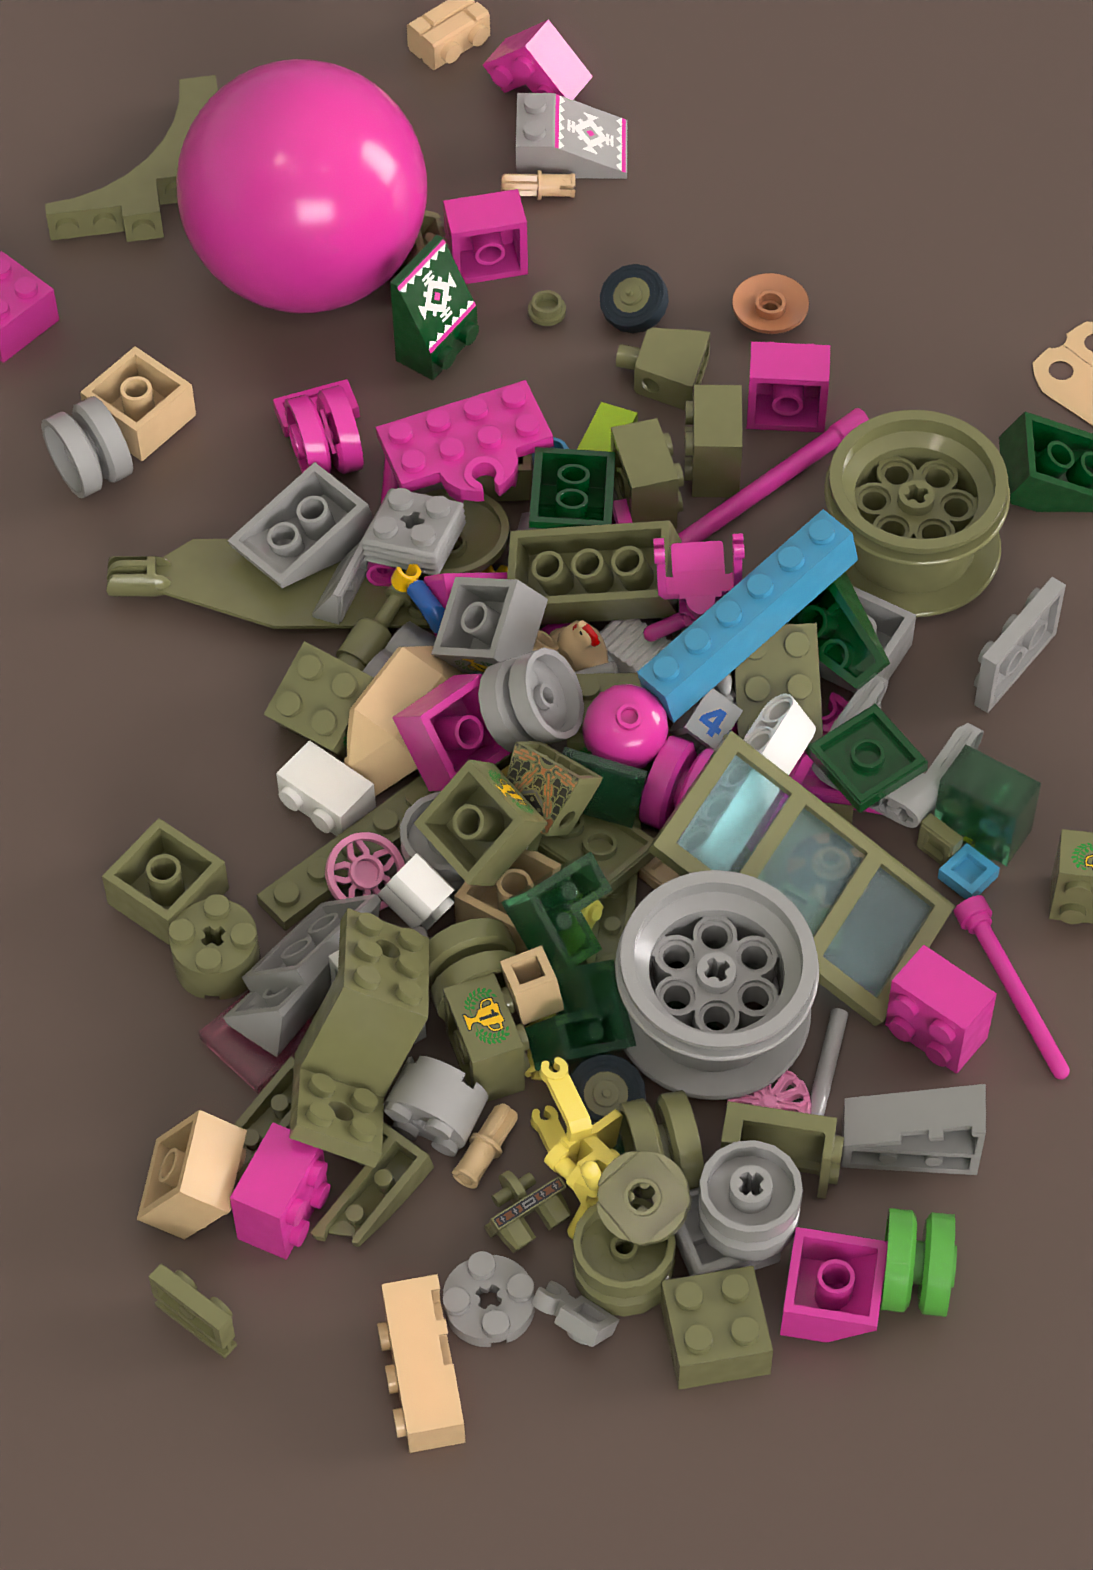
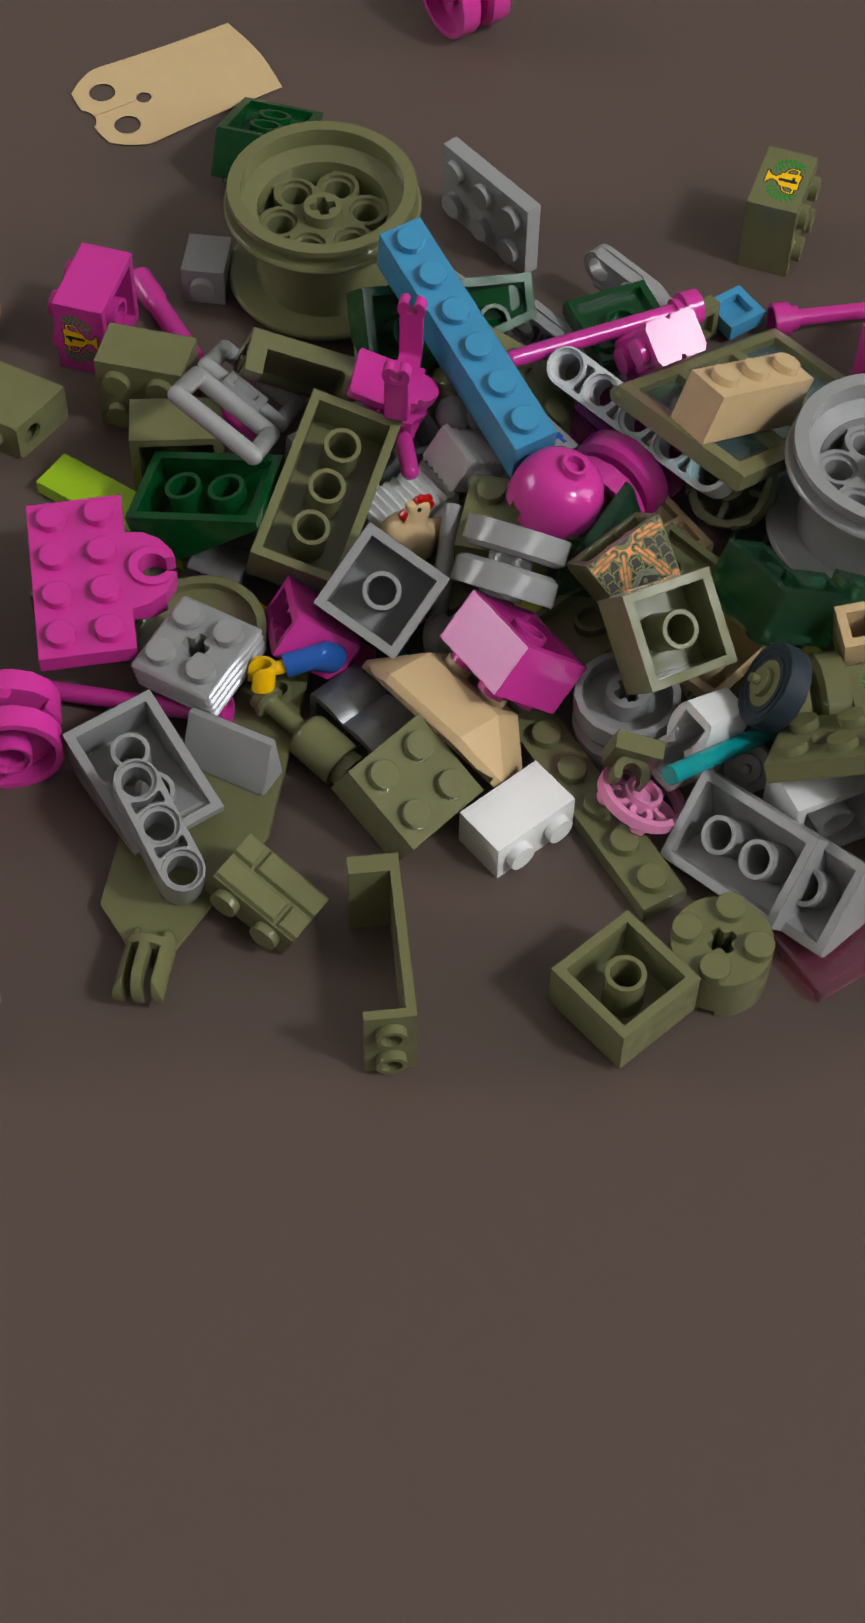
camera: 80 degrees left, 0 degrees up
(157, 725) = (378, 900): none -> olive panel
(208, 631) = (264, 895): none -> olive brick
(240, 523) = (154, 808): none -> light grey beam
(384, 845) = (632, 754): none -> olive tile
(385, 895) = (715, 755): none -> teal bar
(439, 910) = (775, 687): none -> black wheel
(672, 484) = (239, 400): none -> light grey bar
(736, 497) = (293, 365): none -> olive panel
(750, 830) = (742, 397): none -> tan brick
(815, 769) = (659, 344): none -> brick
(892, 795) = (607, 331): none -> dark pink piece
(987, 804) = (685, 253): clear green brick -> none

